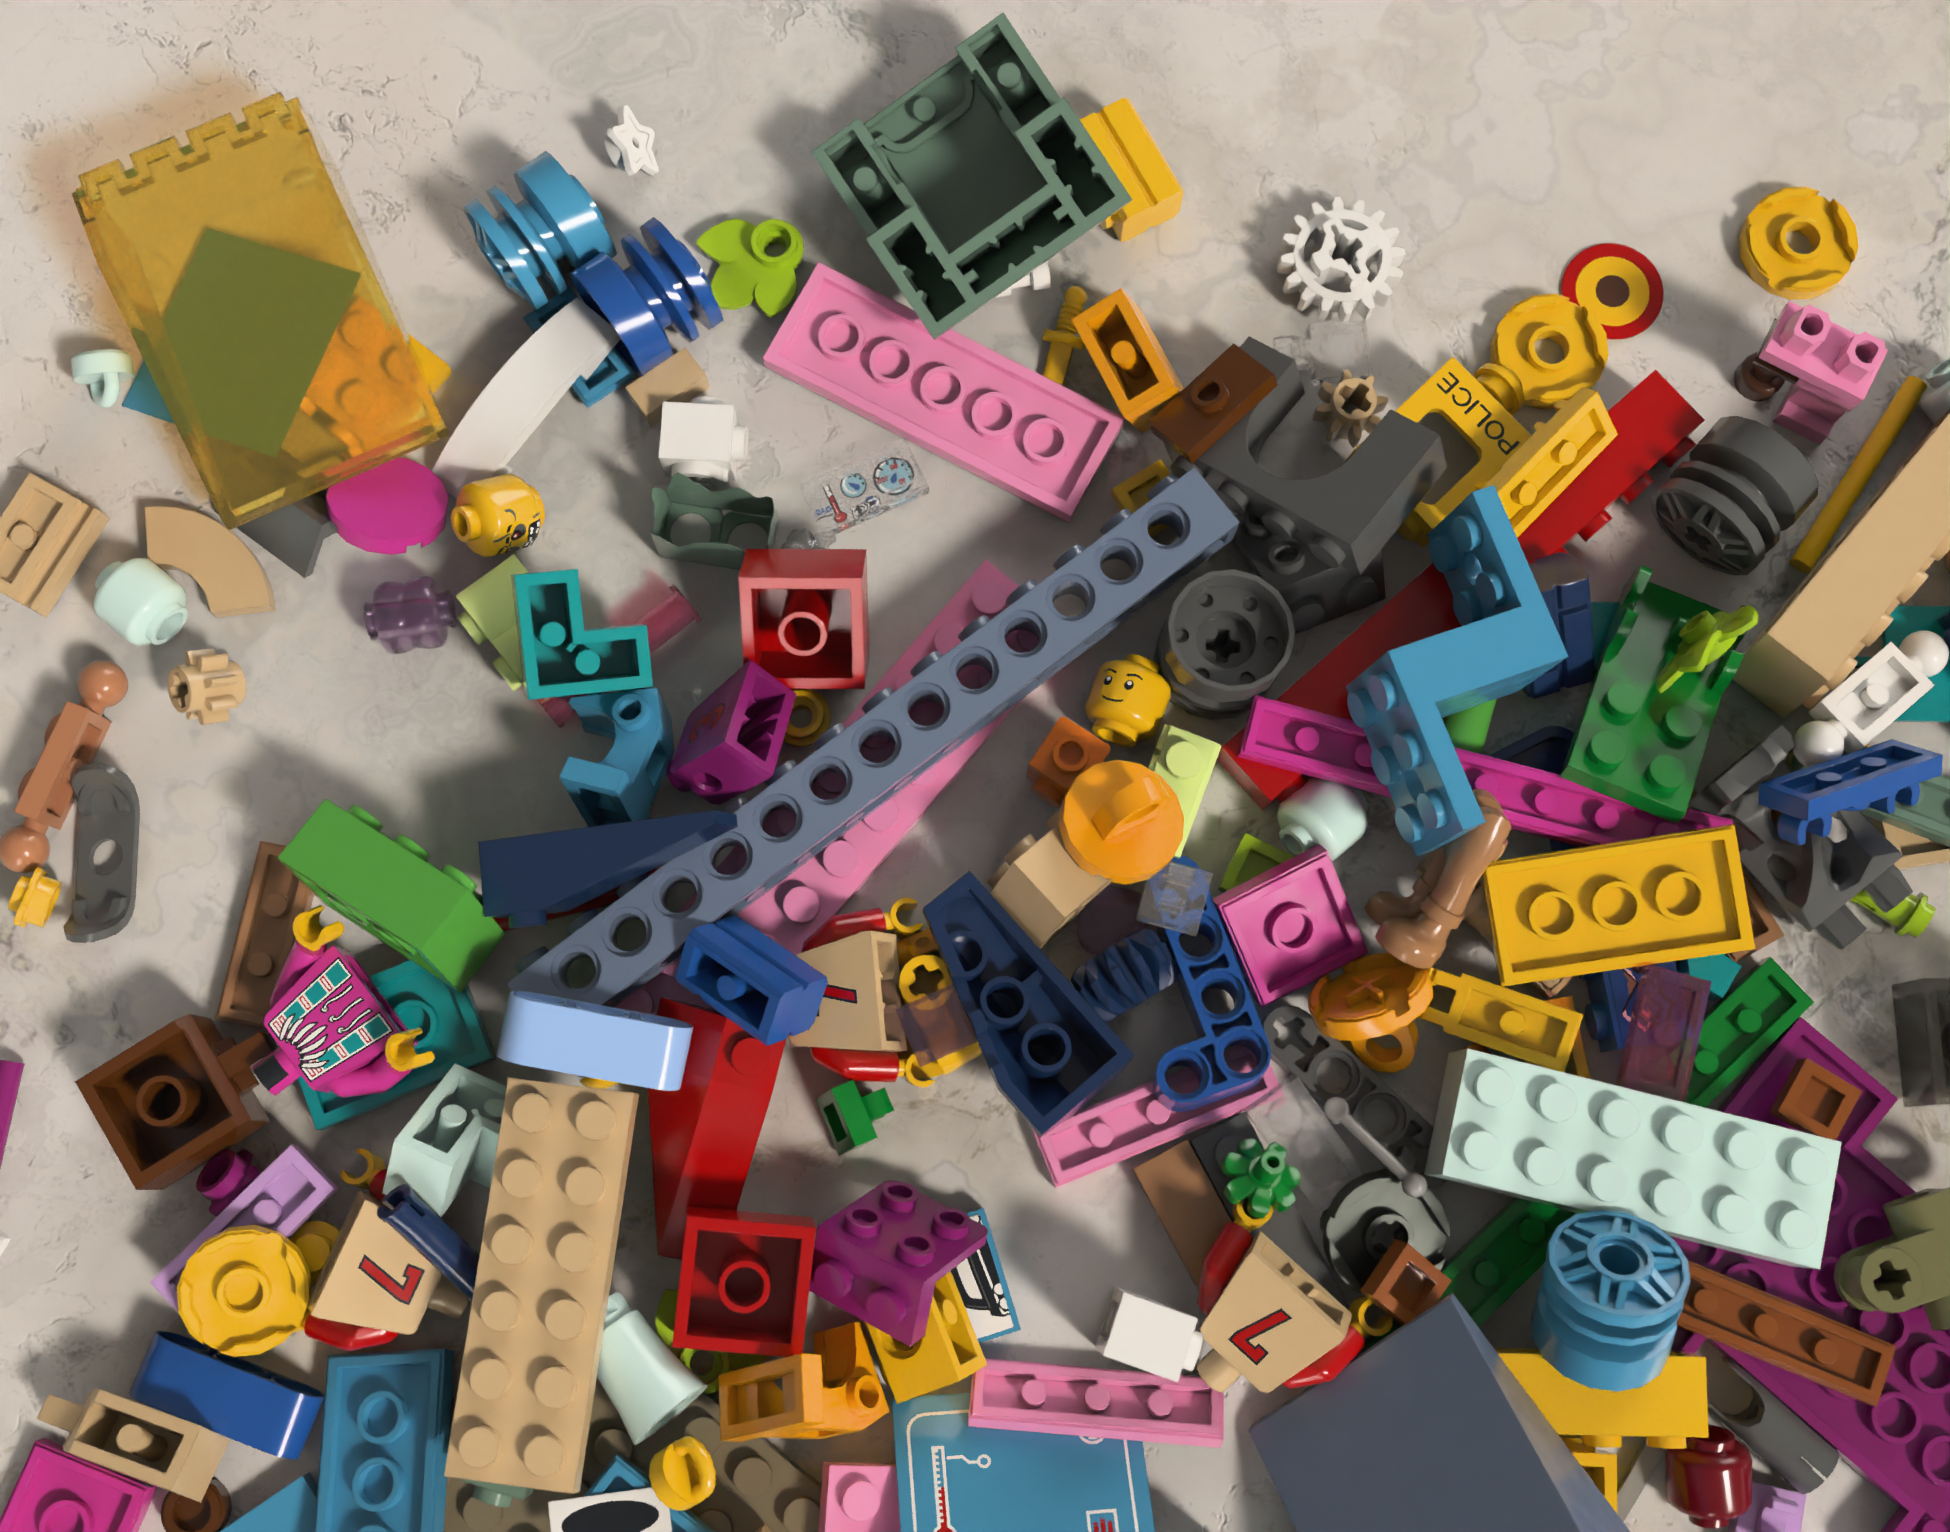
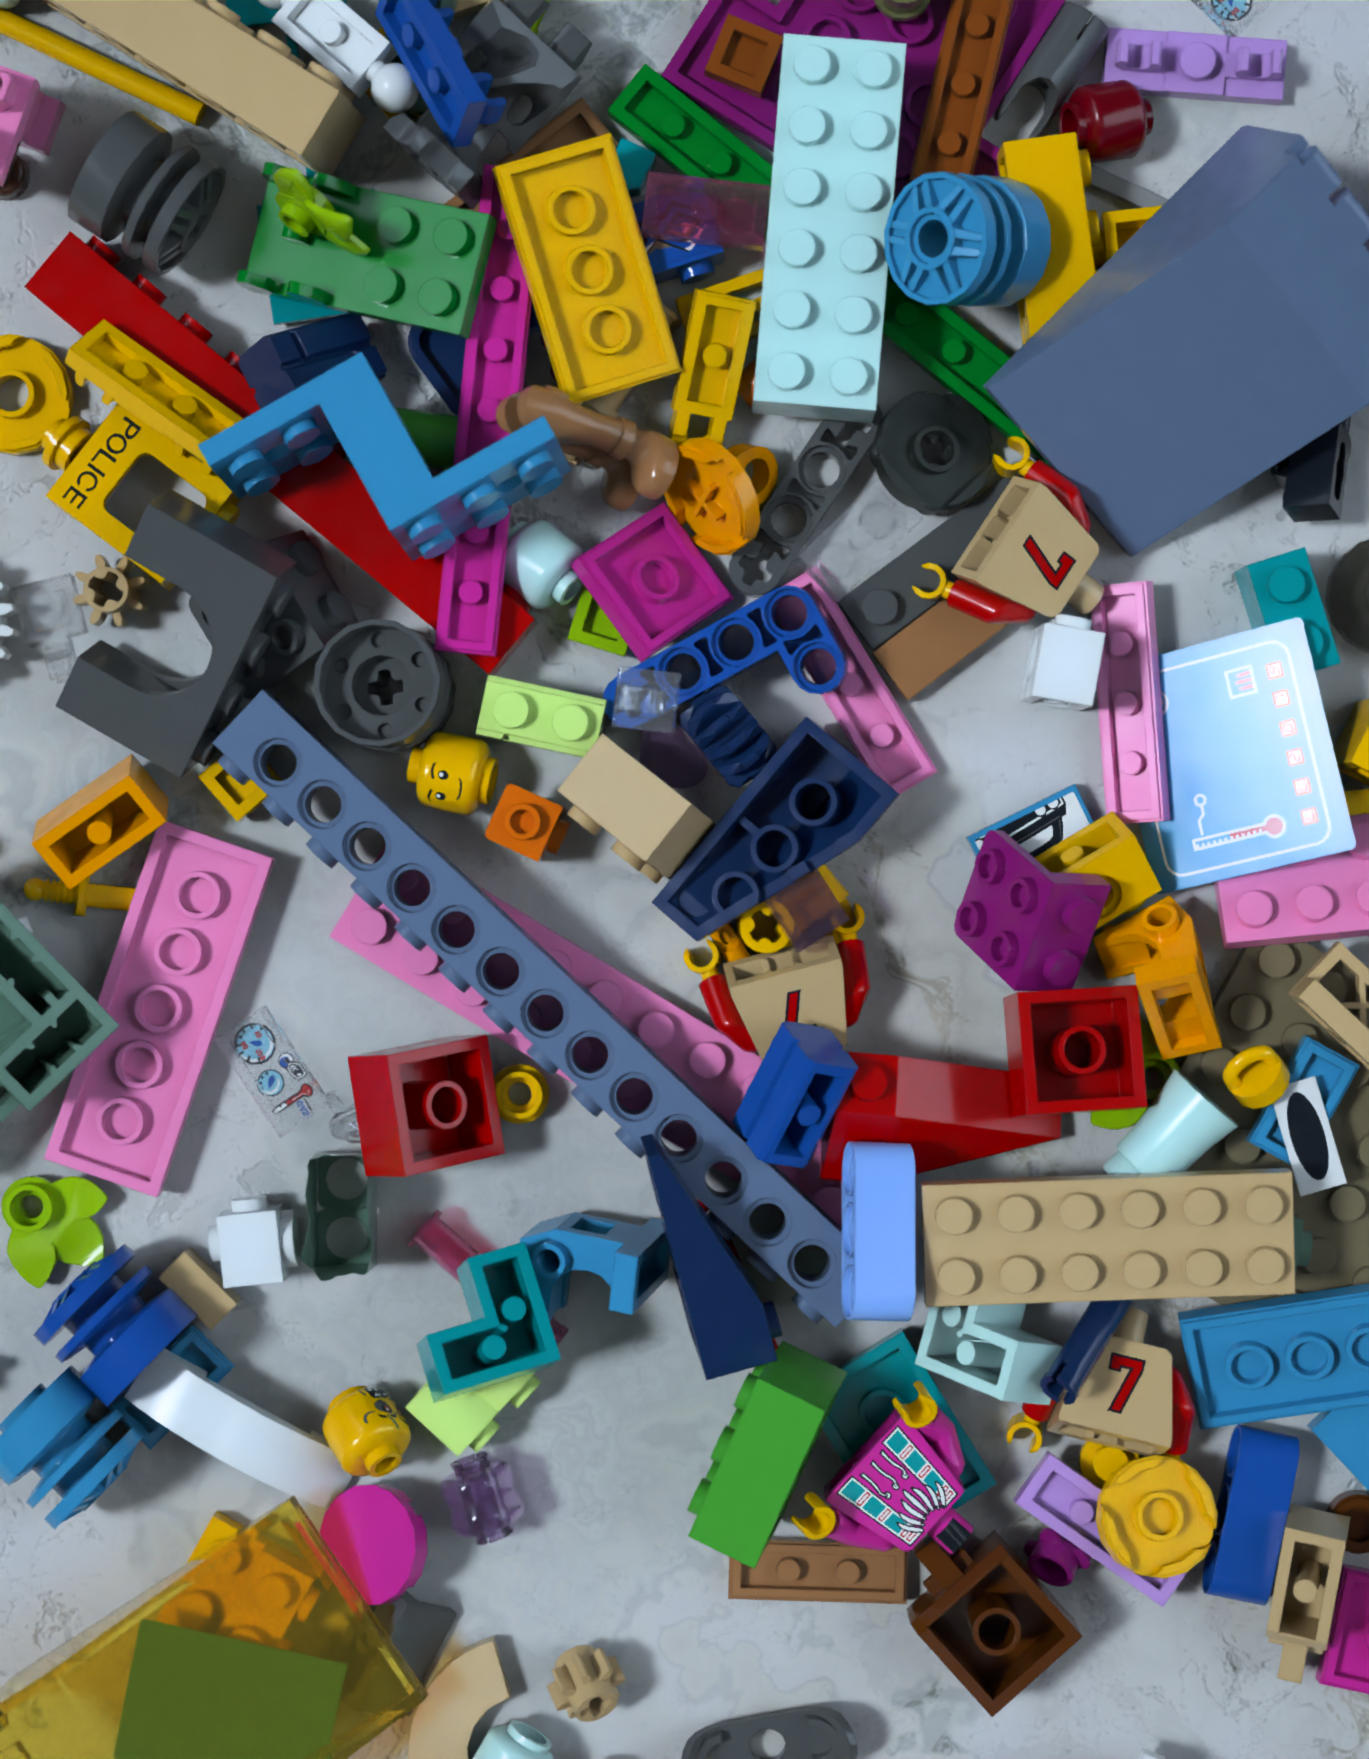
camera: 100 degrees left, 10 degrees up
(733, 736) = (556, 1154): magenta torso -> none
(851, 1116) = (901, 977): green tile -> none
(1121, 821) = (586, 763): light orange tile -> none
(1213, 403) = (138, 732): reddish brown plate -> none
(1260, 1177) = (900, 579): green plant -> none
(1338, 1112) = (825, 511): light grey hinge -> none
(1405, 1283) = (977, 429): dark orange plate -> none

